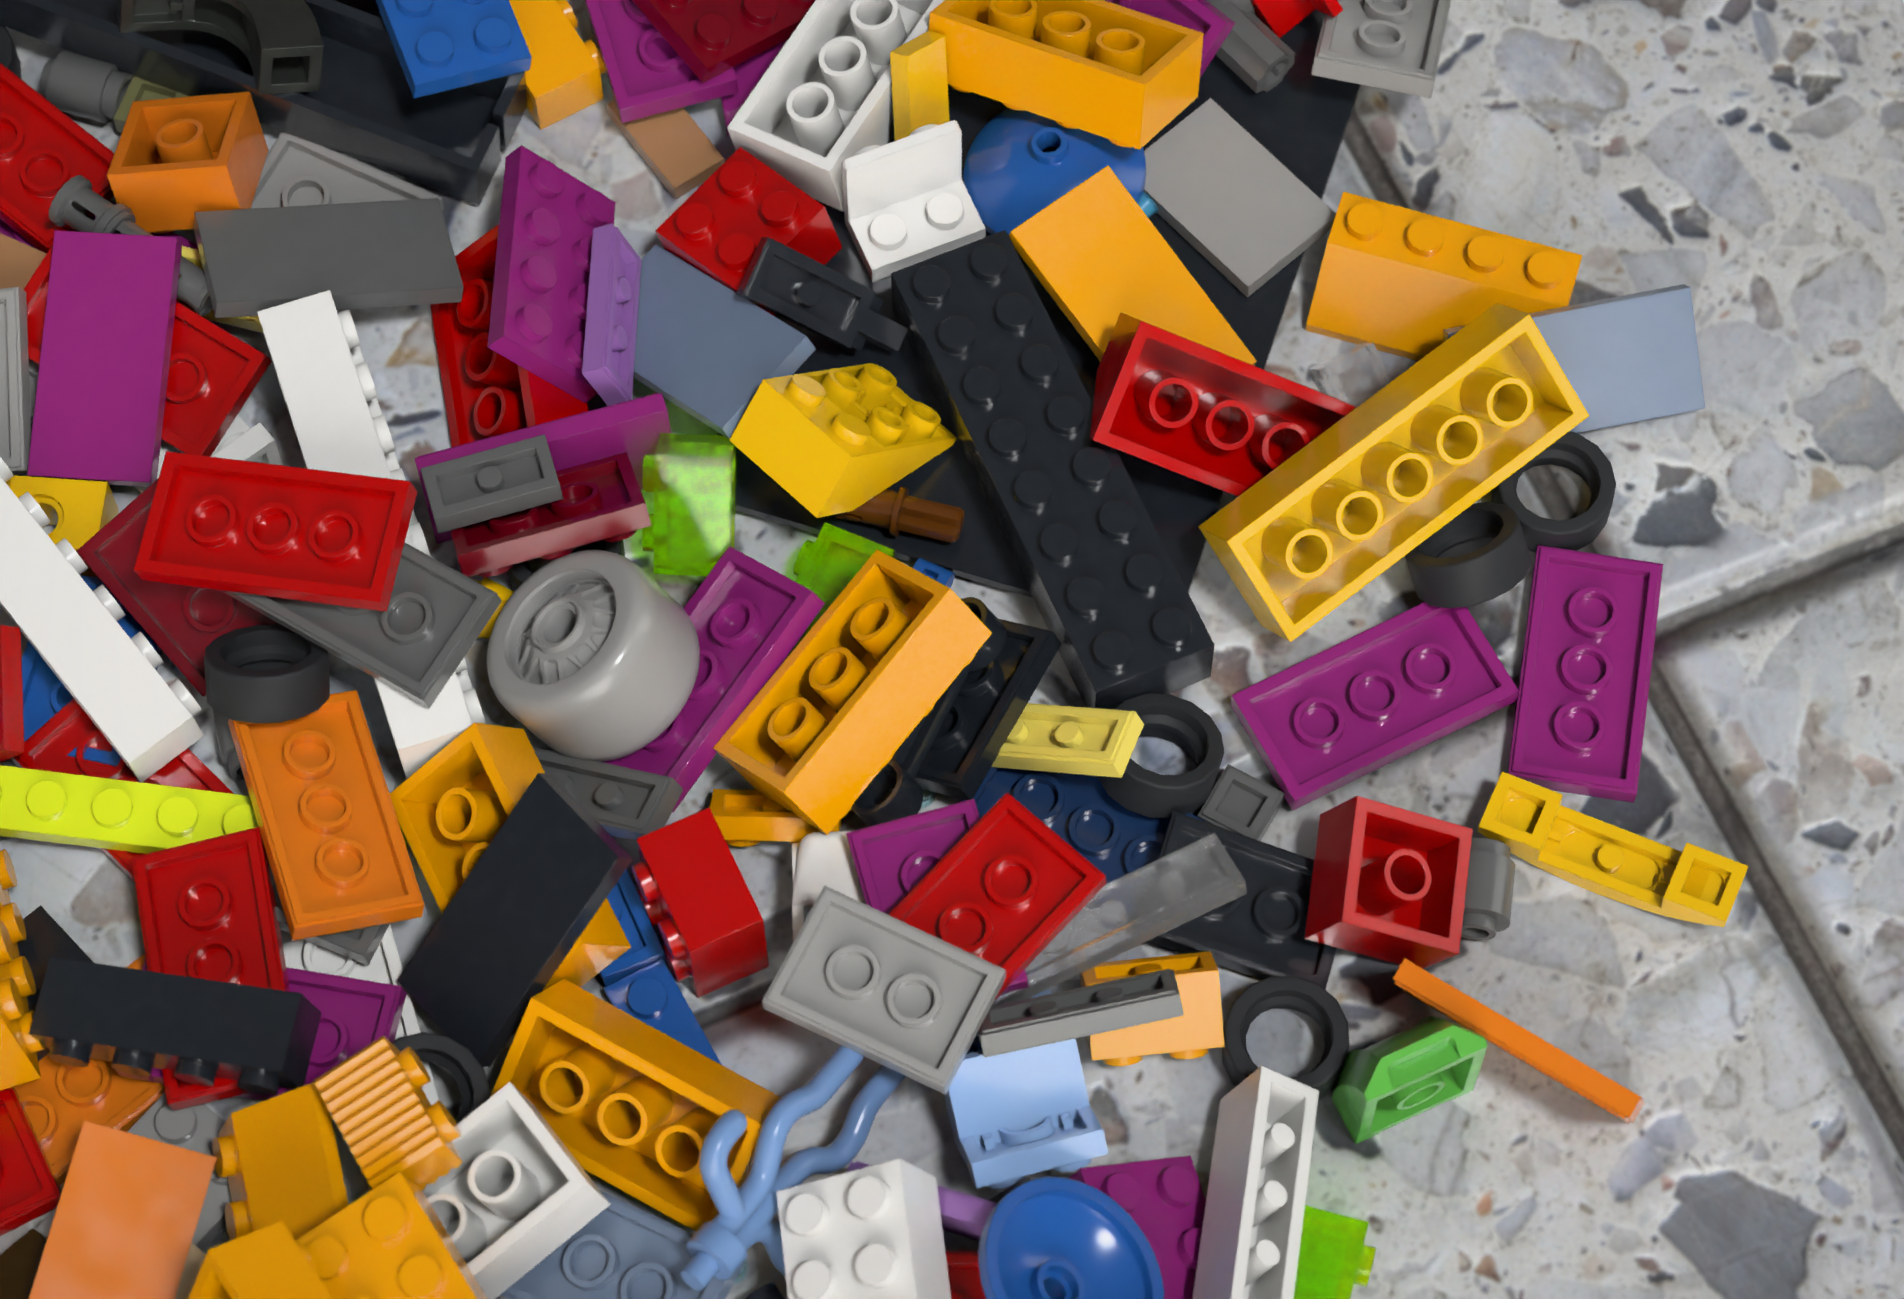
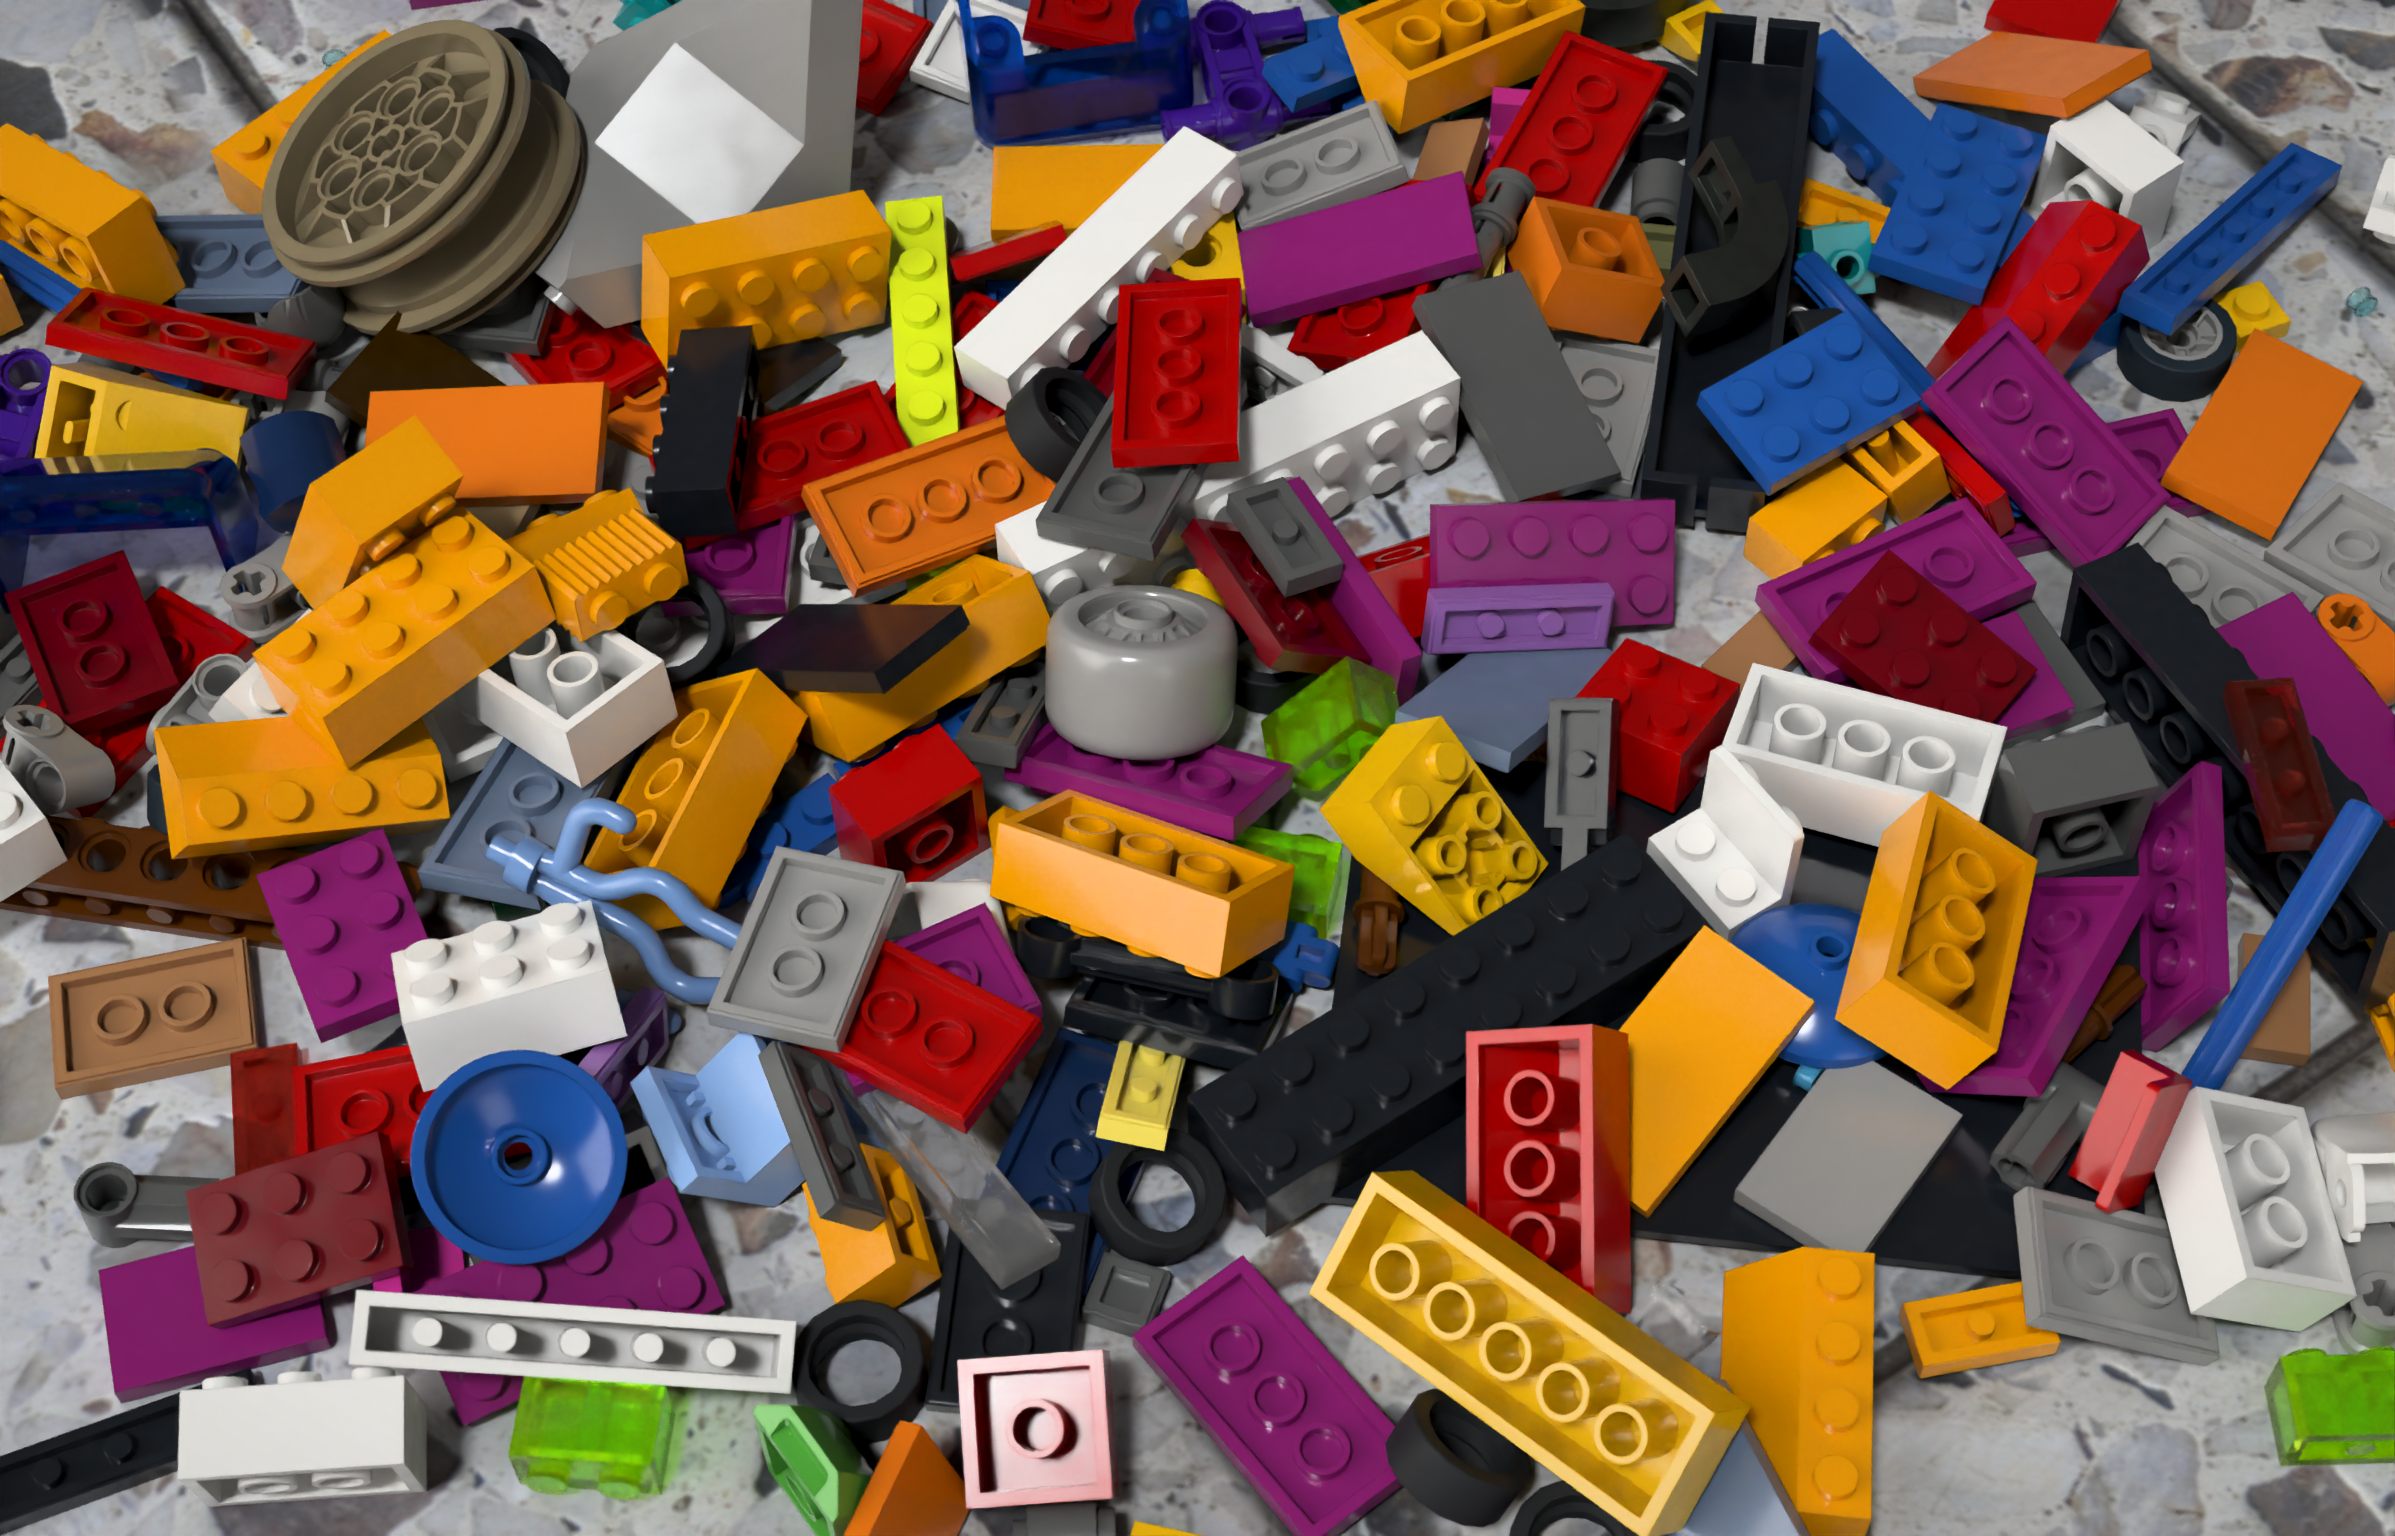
camera: 80 degrees right, 10 degrees down
(919, 83) = (1850, 822): yellow tile -> none
(1399, 148) = (1972, 1330): none -> light orange plate

